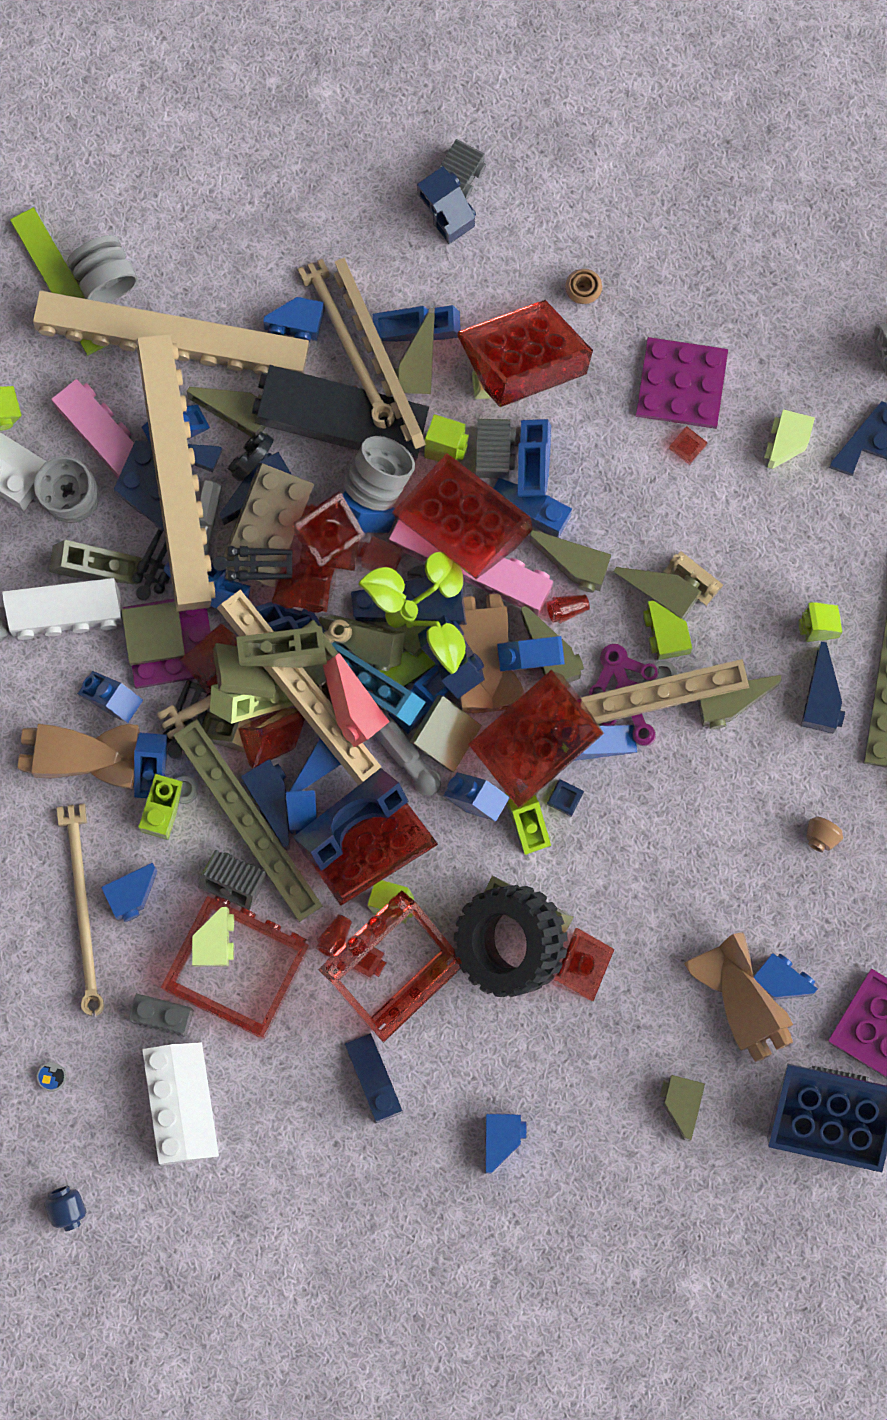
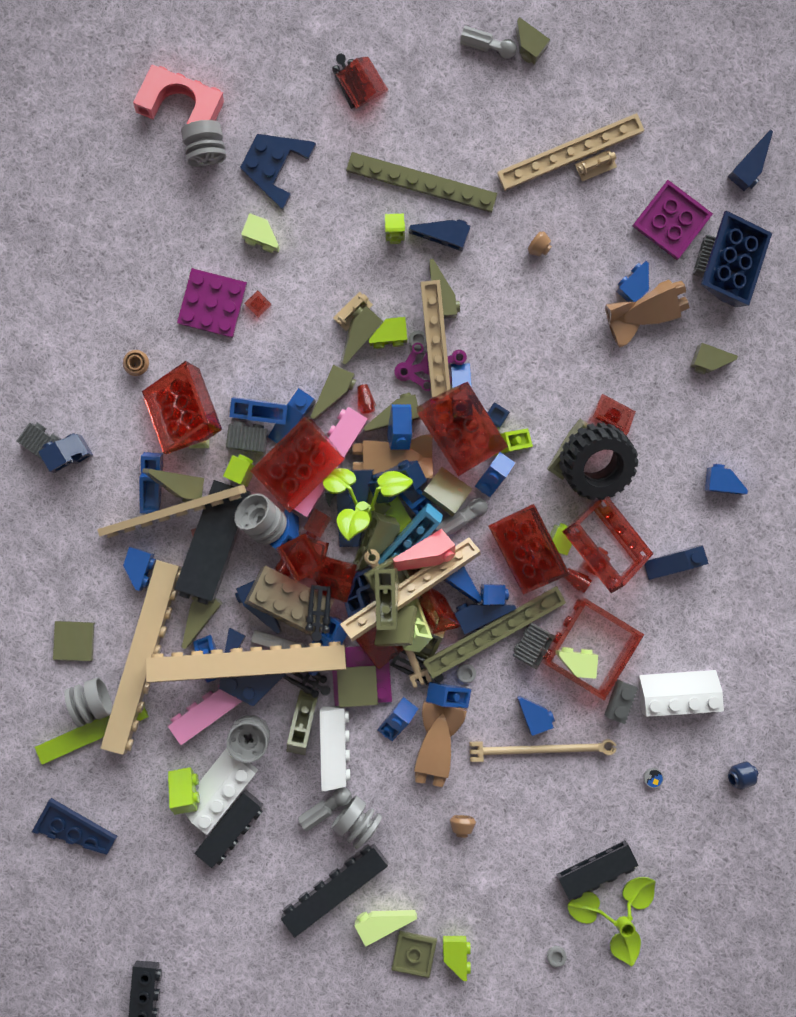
camera: 85 degrees left, 10 degrees up
(161, 807) = (480, 690): lime slope -> none
(185, 244) = (73, 640): none -> olive tile
(255, 449) = (238, 607): black tile -> none
(315, 277) = (108, 550): tan hinge -> none
(375, 797) = (514, 581): dark blue arch -> none

